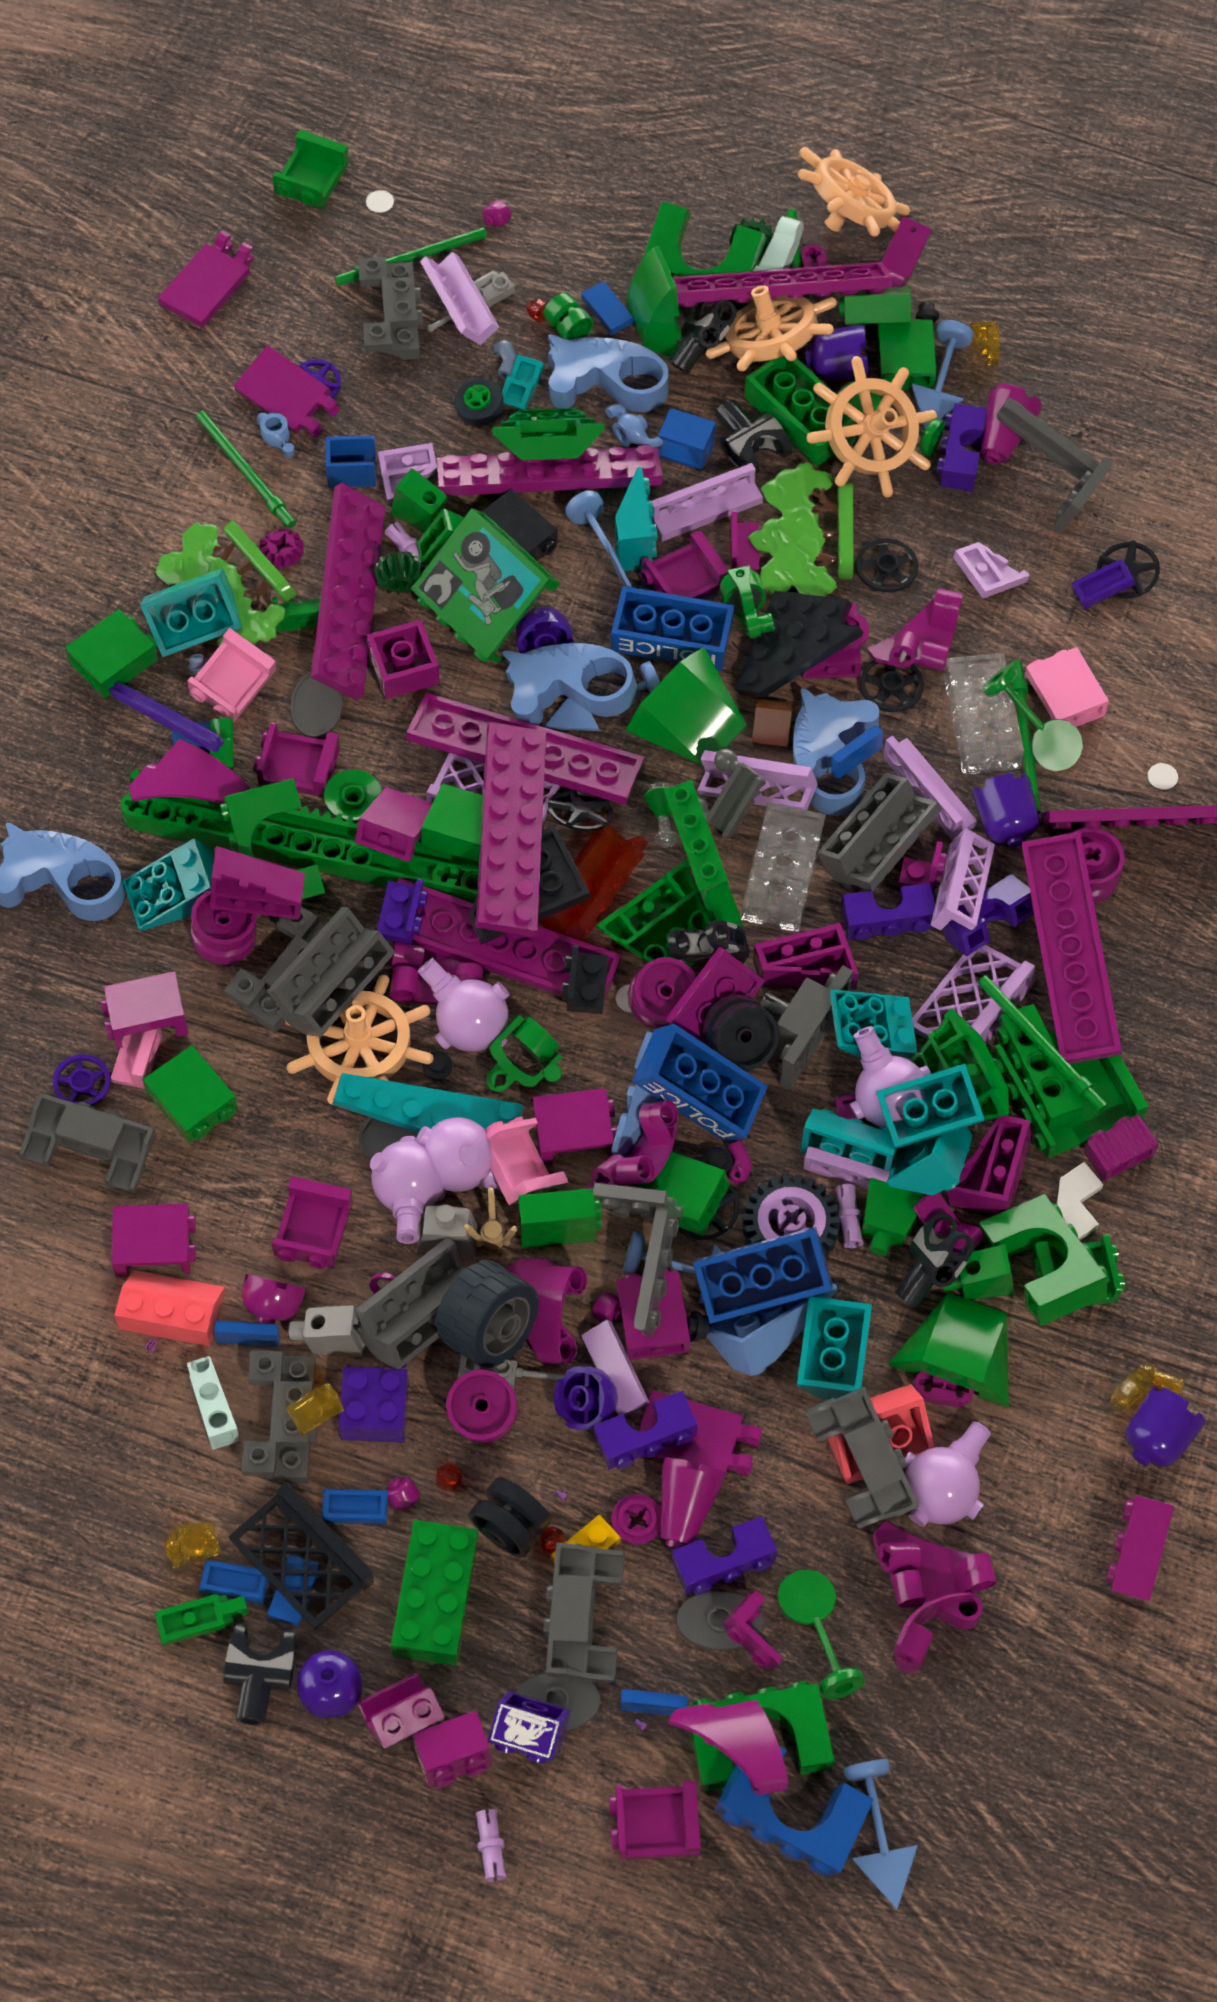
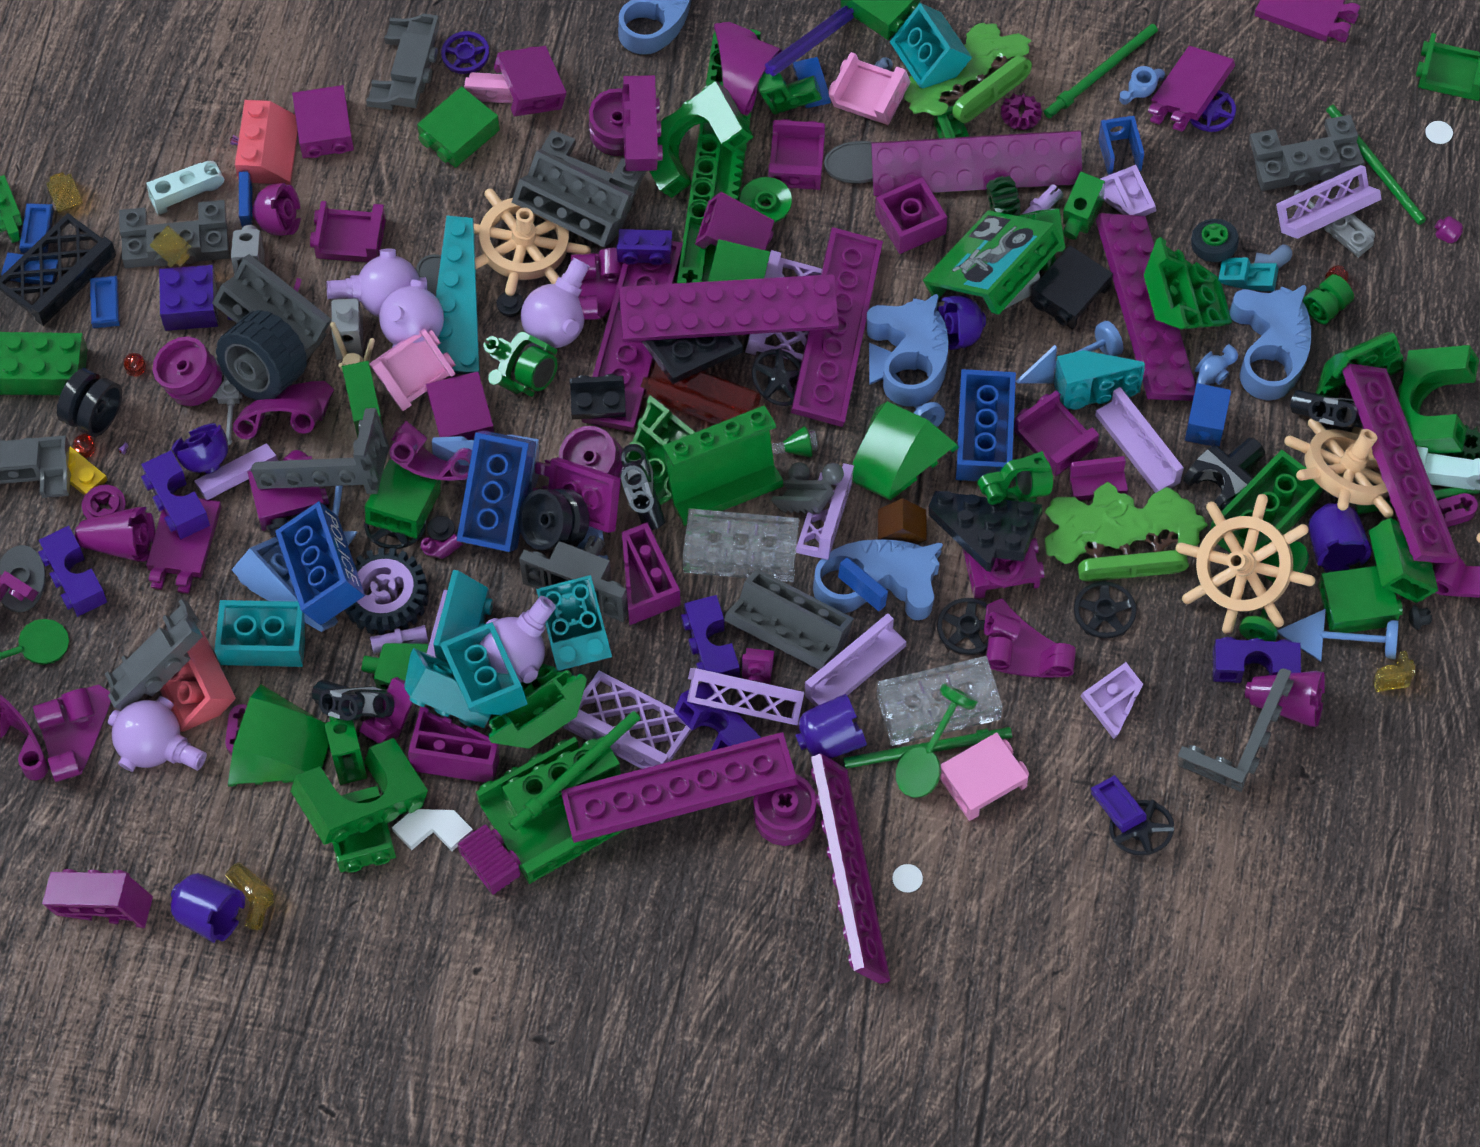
camera: 85 degrees right, 0 degrees up
(170, 885) = (671, 83): teal slope -> none
(402, 1493) = (119, 334): magenta piece -> none
(607, 308) = (1356, 332): blue tile -> none

